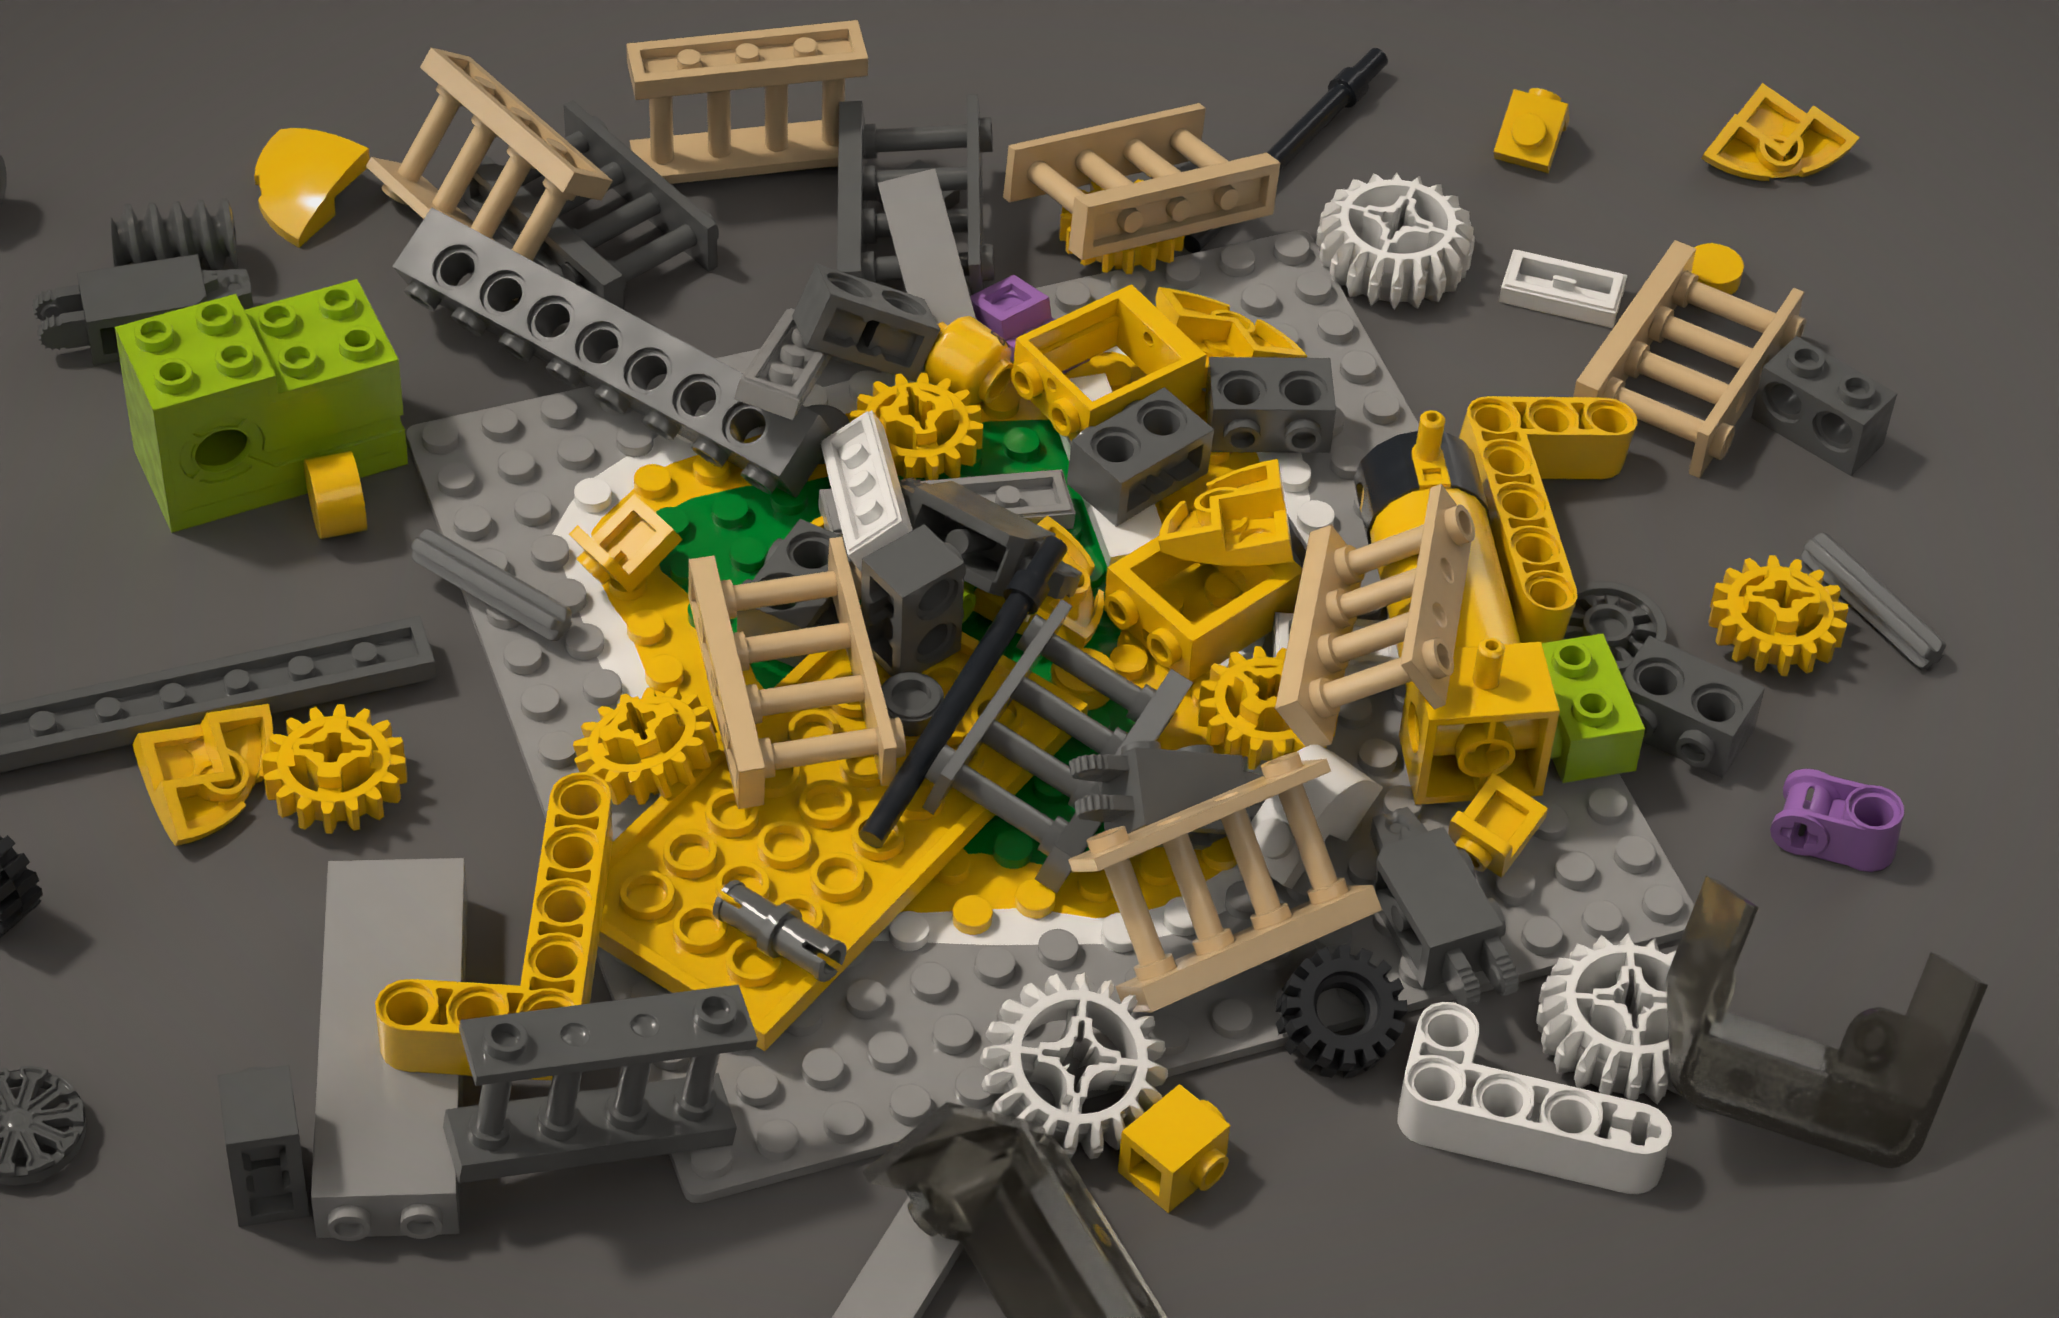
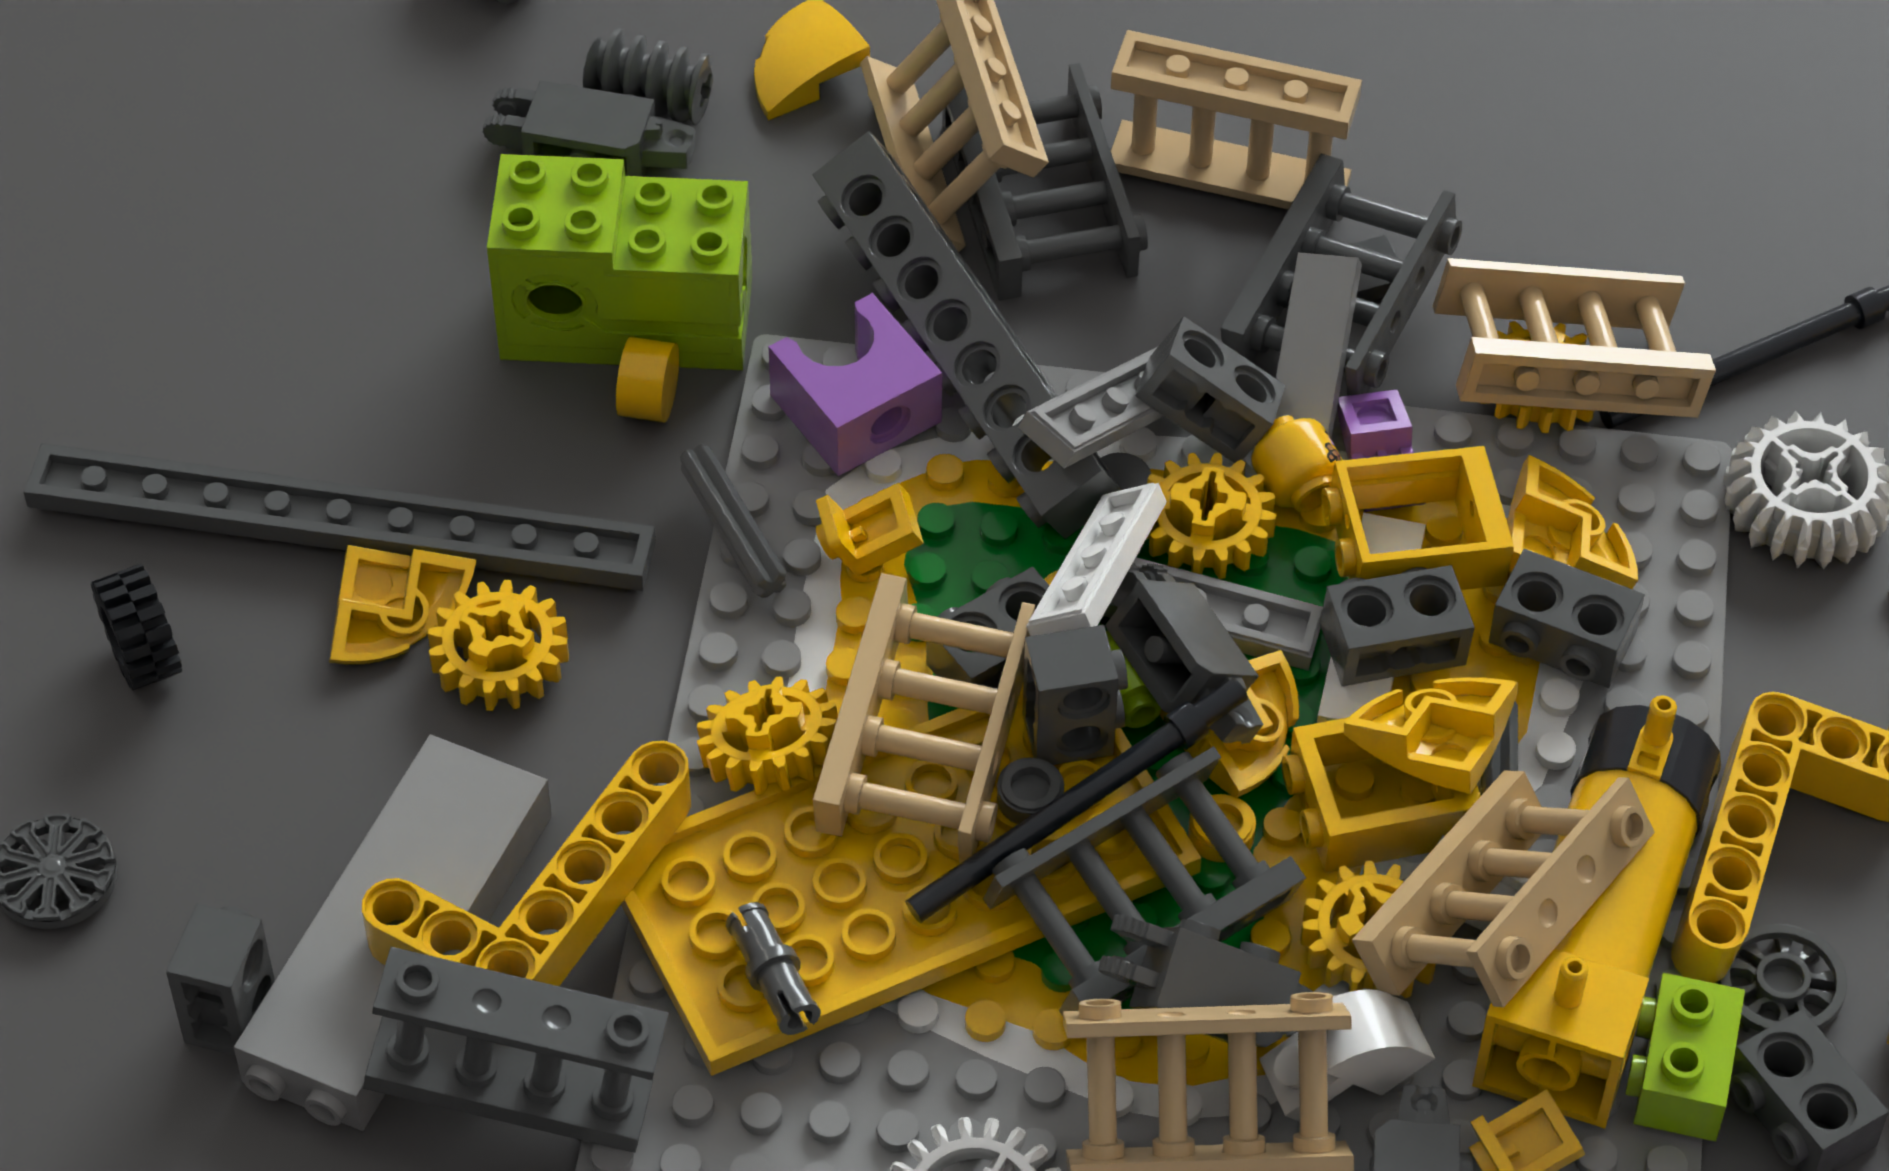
camera: 30 degrees right, 5 degrees up
(555, 443) = (861, 406): none -> medium lavender piece

